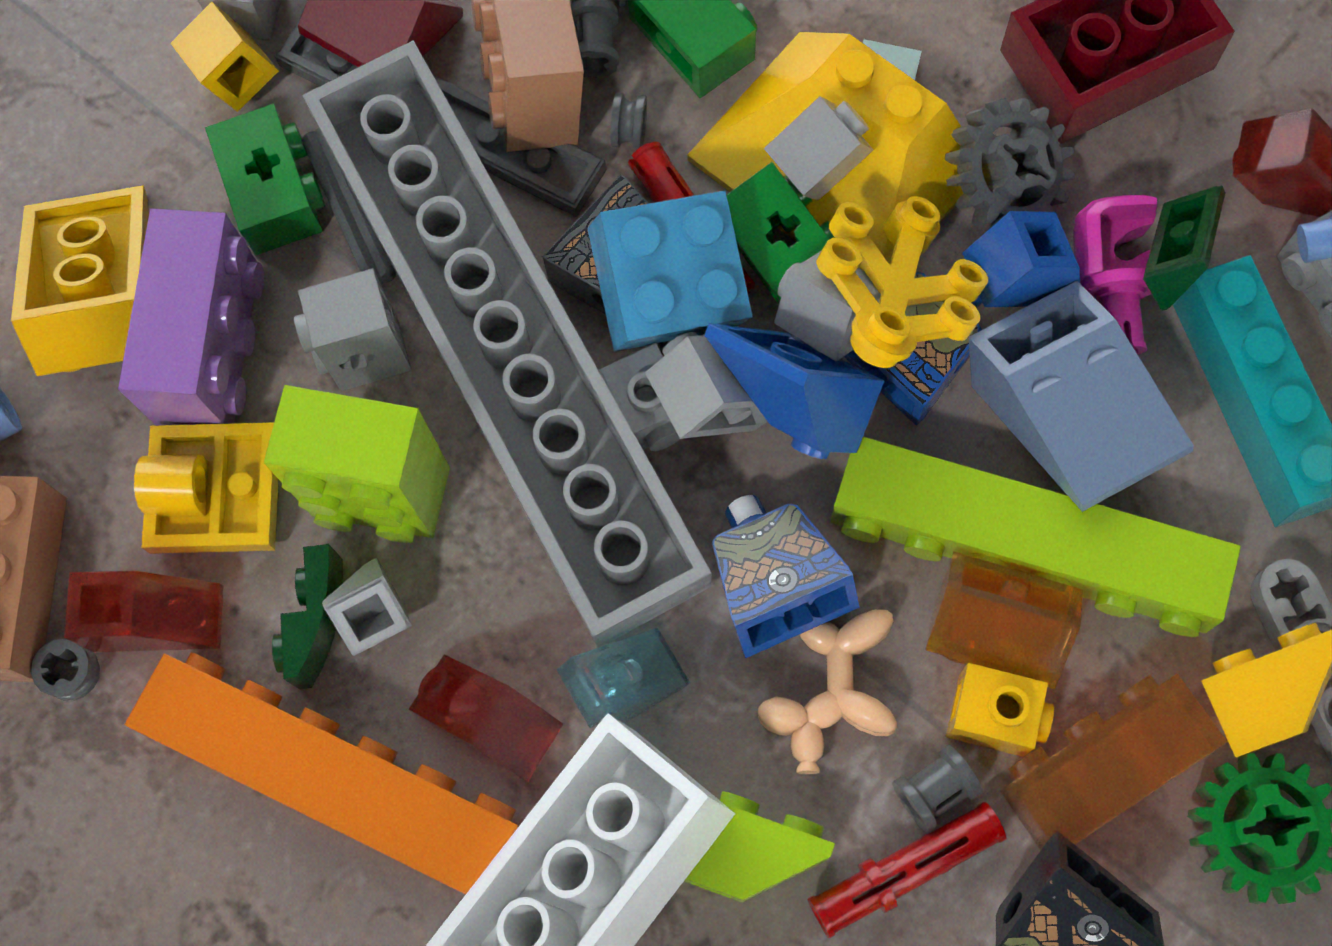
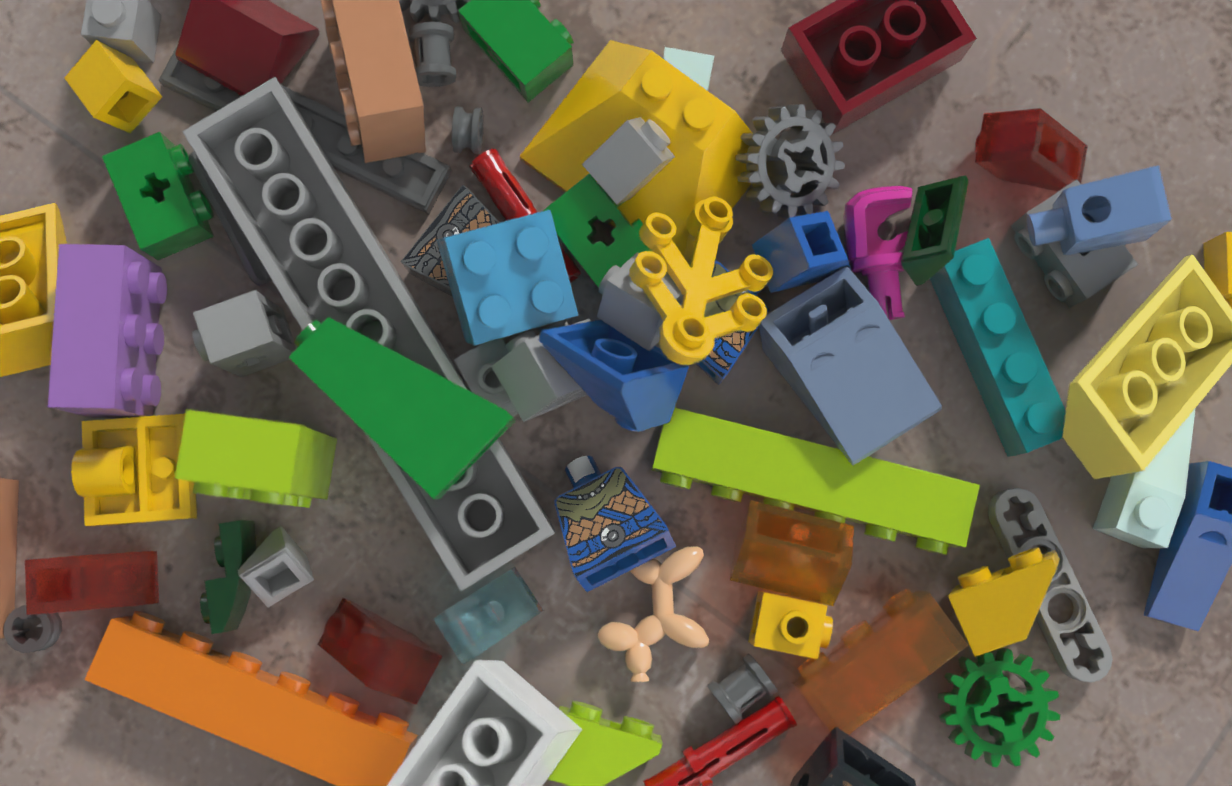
camera: 10 degrees left, 10 degrees up
(545, 409) = (406, 409): none -> green slope

